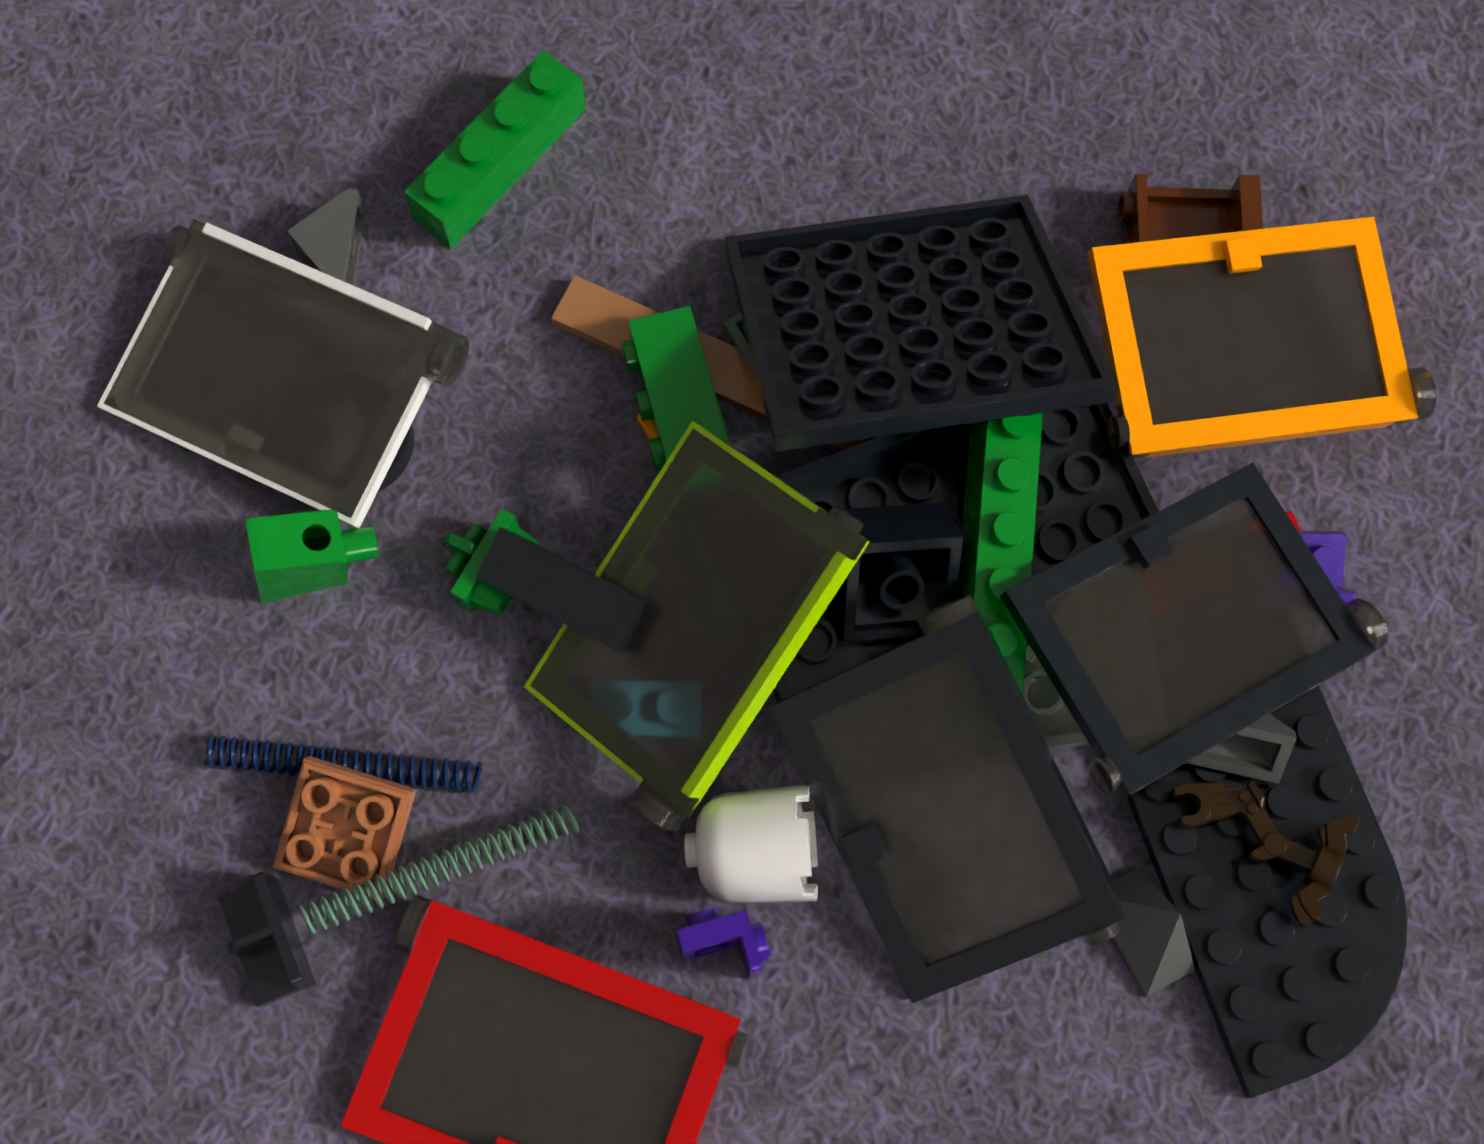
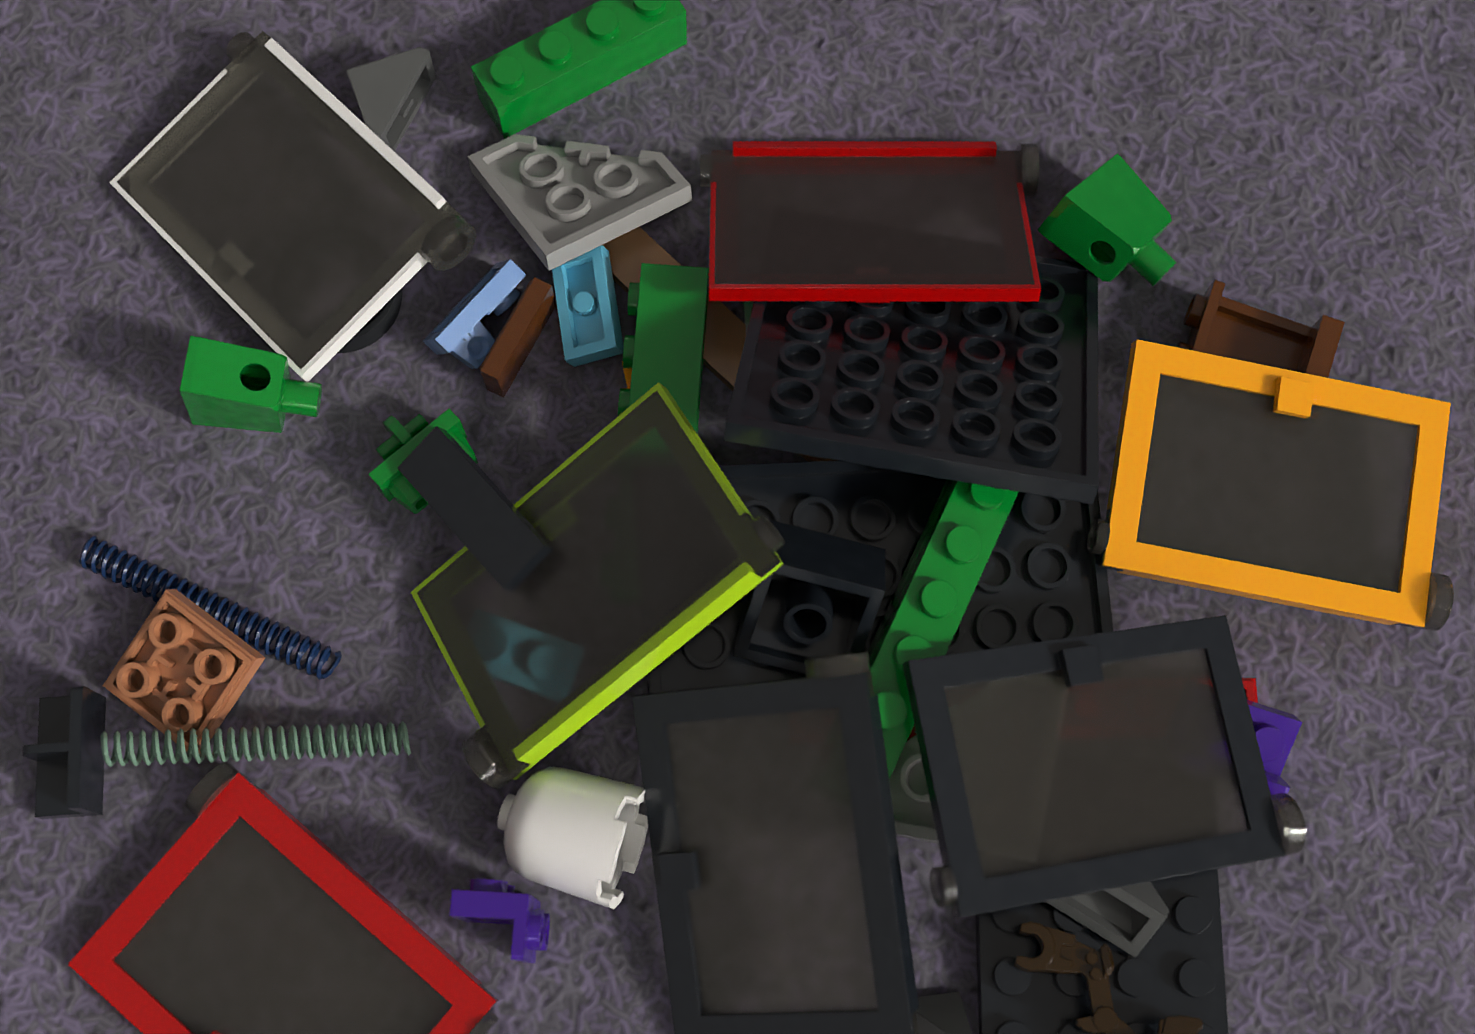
camera: 20 degrees right, 0 degrees up
(480, 433) = (461, 330): none -> medium blue hinge
(535, 424) = (518, 336): none -> reddish brown tile
(540, 278) = (576, 194): none -> light grey plate
(587, 375) = (588, 308): none -> medium azure plate
(817, 218) = (871, 221): none -> clear smoke door
(1029, 154) = (1111, 224): none -> green torso

